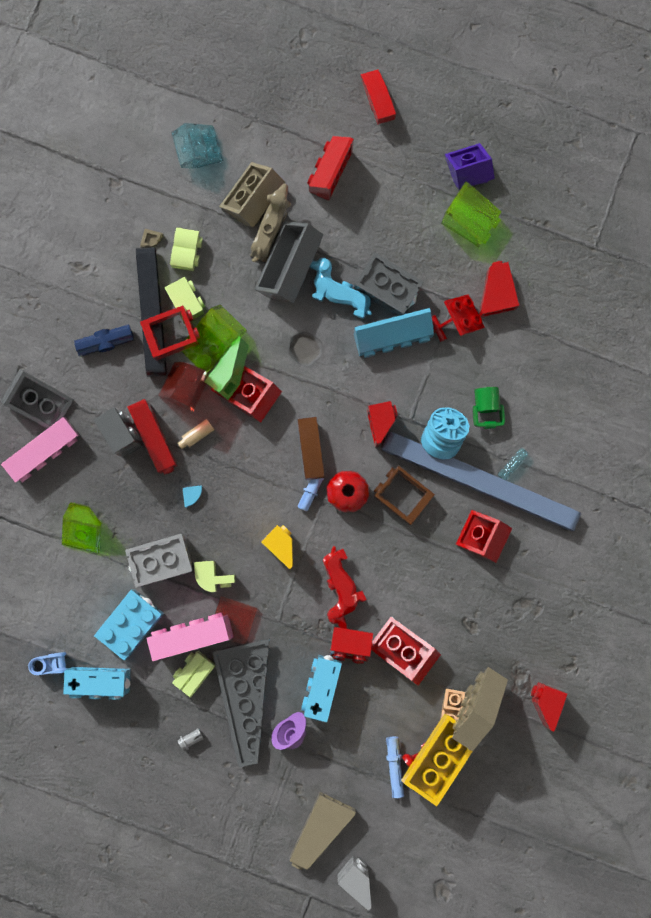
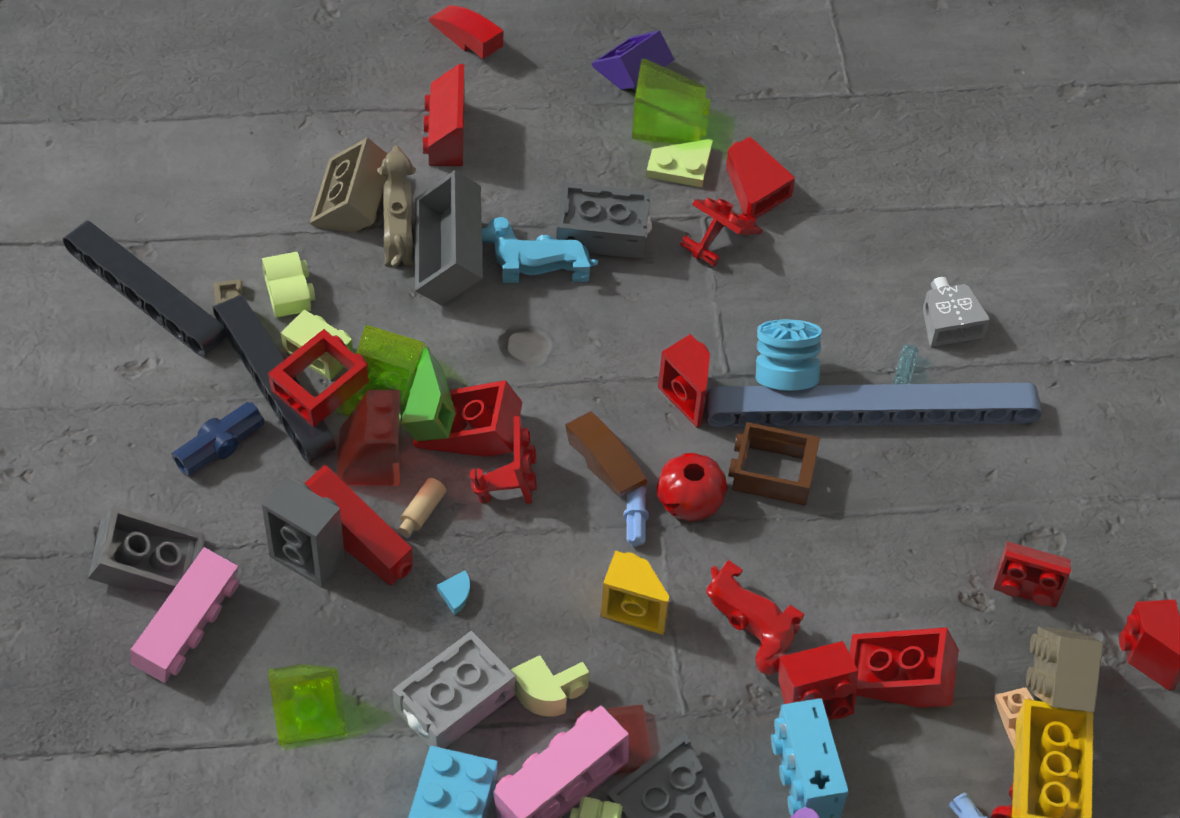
camera: 25 degrees left, 30 degrees down
(103, 216) = (145, 288): none -> black beam
(196, 145) = (242, 161): clear light blue slope -> none
(254, 441) = (513, 475): none -> red plate
(394, 332) = (642, 269): medium azure slope -> none
(460, 257) = (680, 163): none -> yellowish green wing
(484, 536) = (922, 469): red slope -> none
(488, 401) = (825, 308): green piece -> none
(508, 629) = (1032, 574): none -> red slope
(562, 439) = (953, 314): none -> light grey torso

